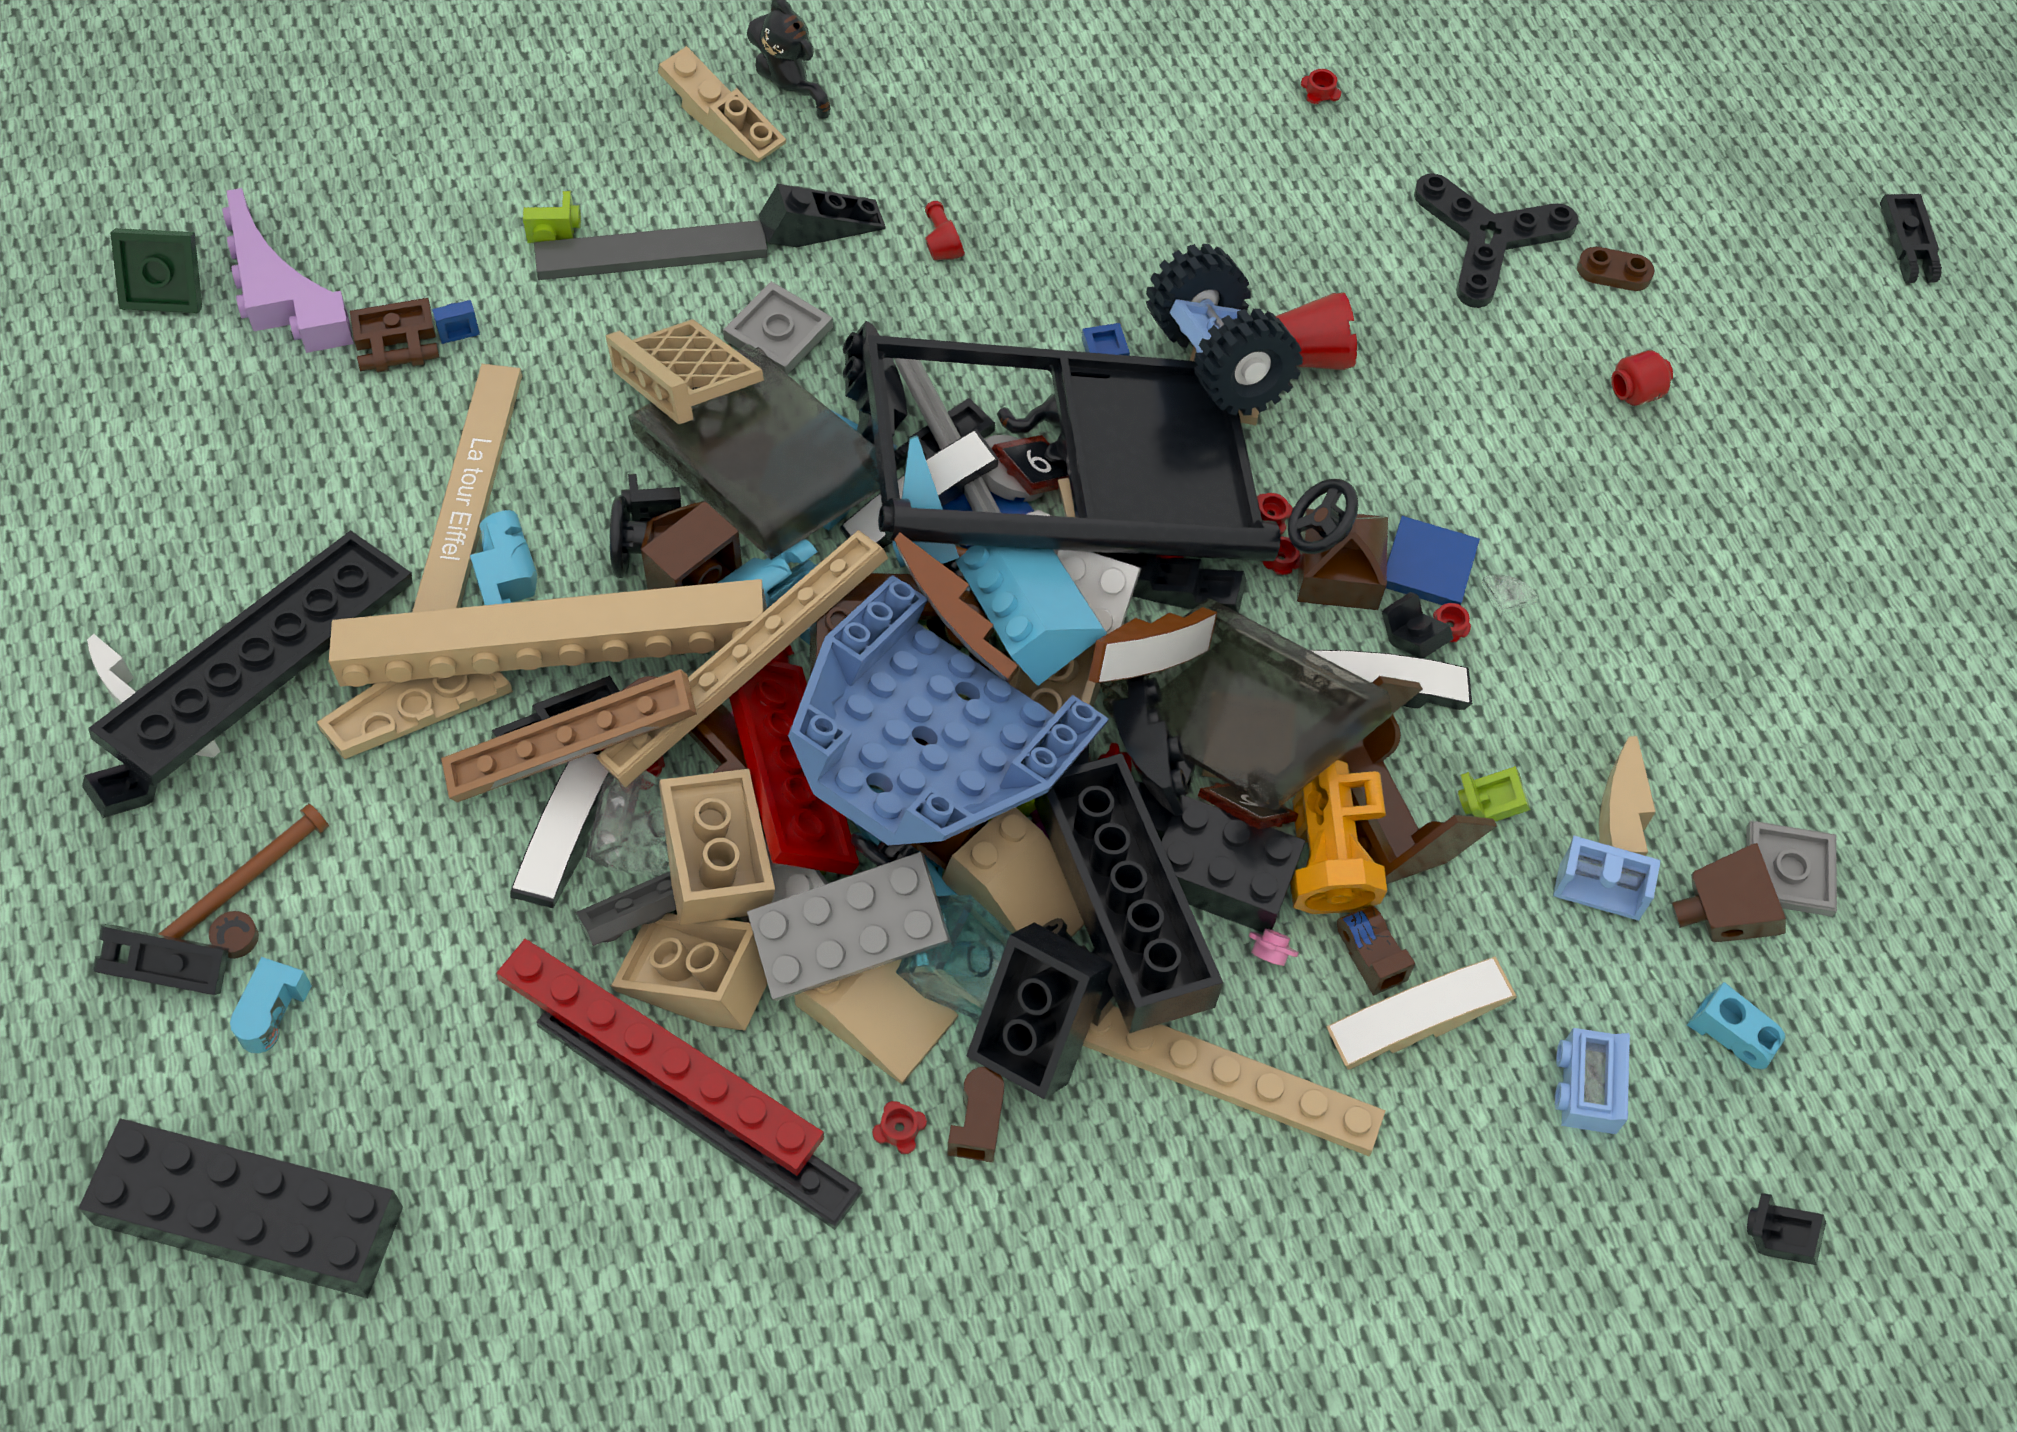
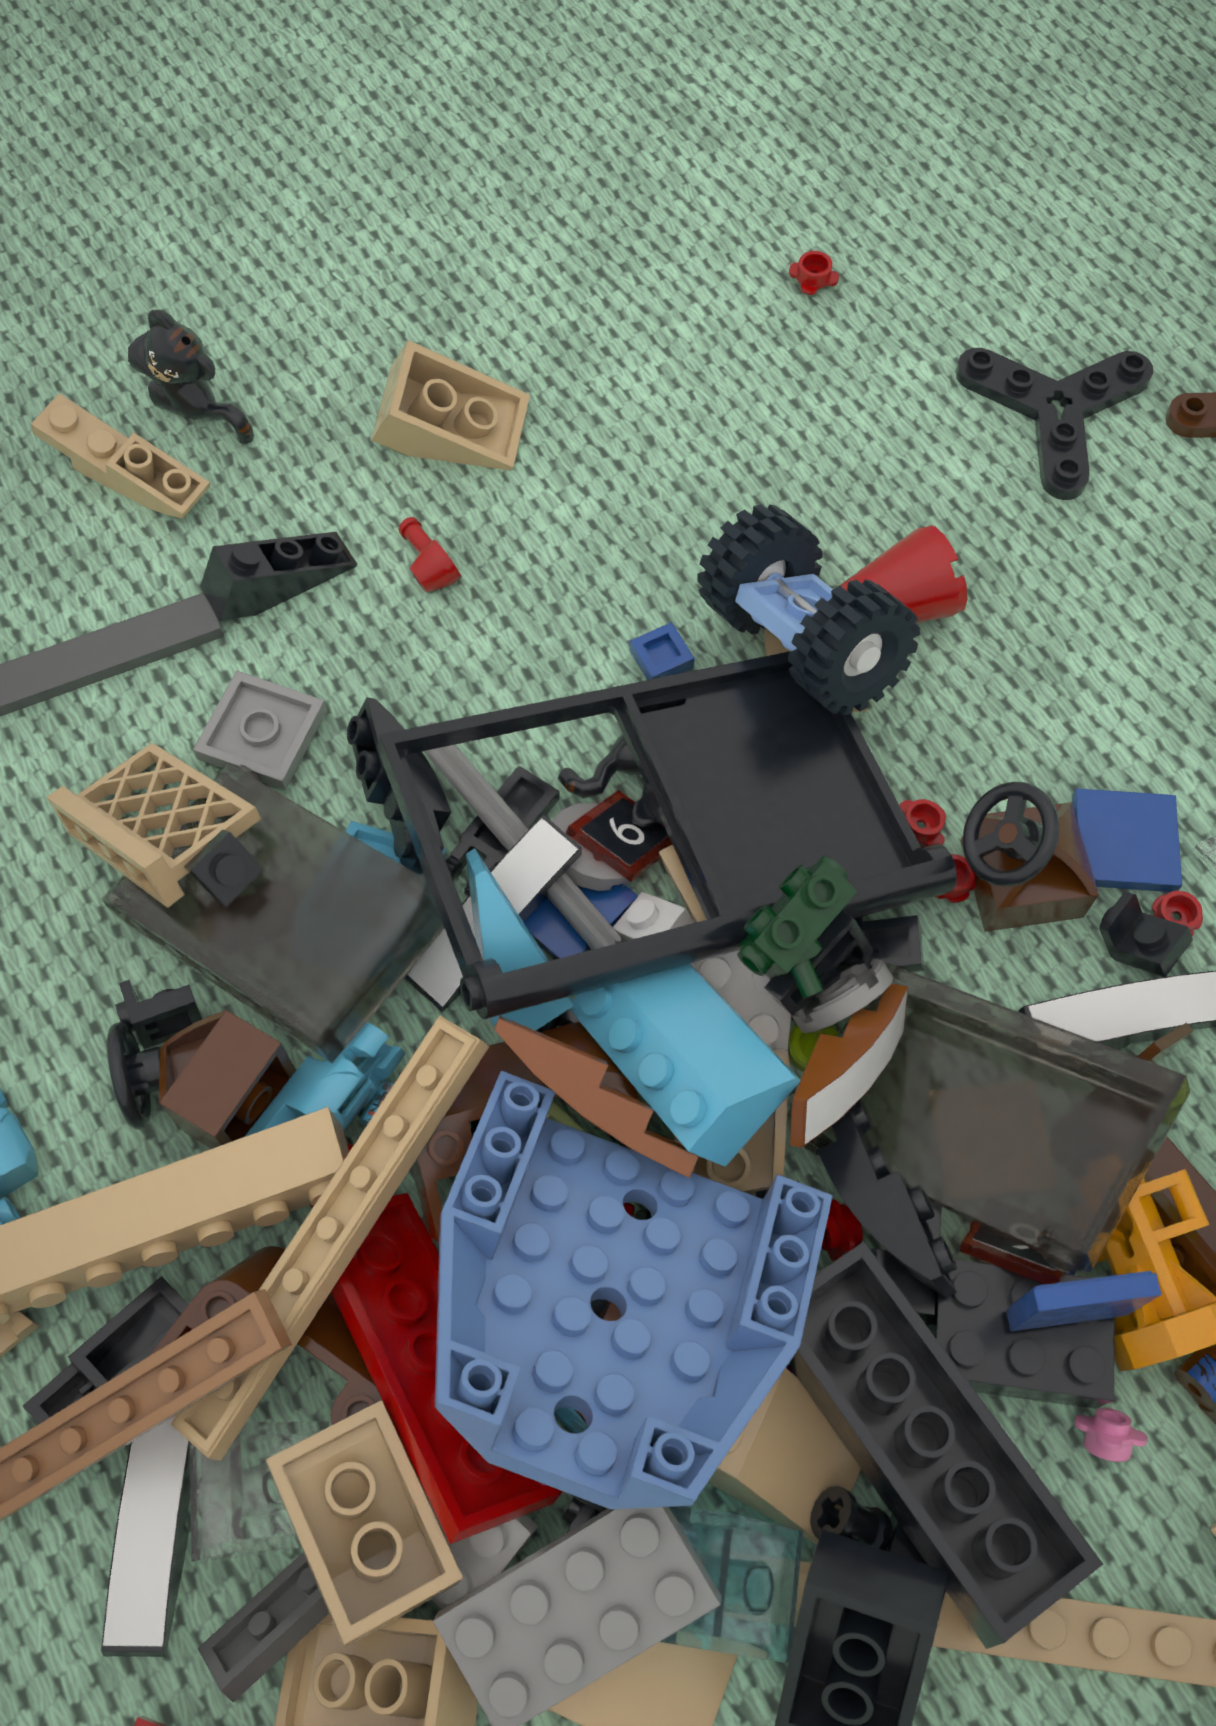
camera: 10 degrees left, 5 degrees up
(728, 406) = (224, 868): none -> black plate
(990, 128) = (449, 411): none -> tan slope
(1129, 537) = (787, 934): none -> dark green brick
(1152, 573) = (838, 942): none -> black wing
(1171, 602) = (845, 997): none -> light grey tile
(1266, 827) = (1083, 1300): none -> blue tile

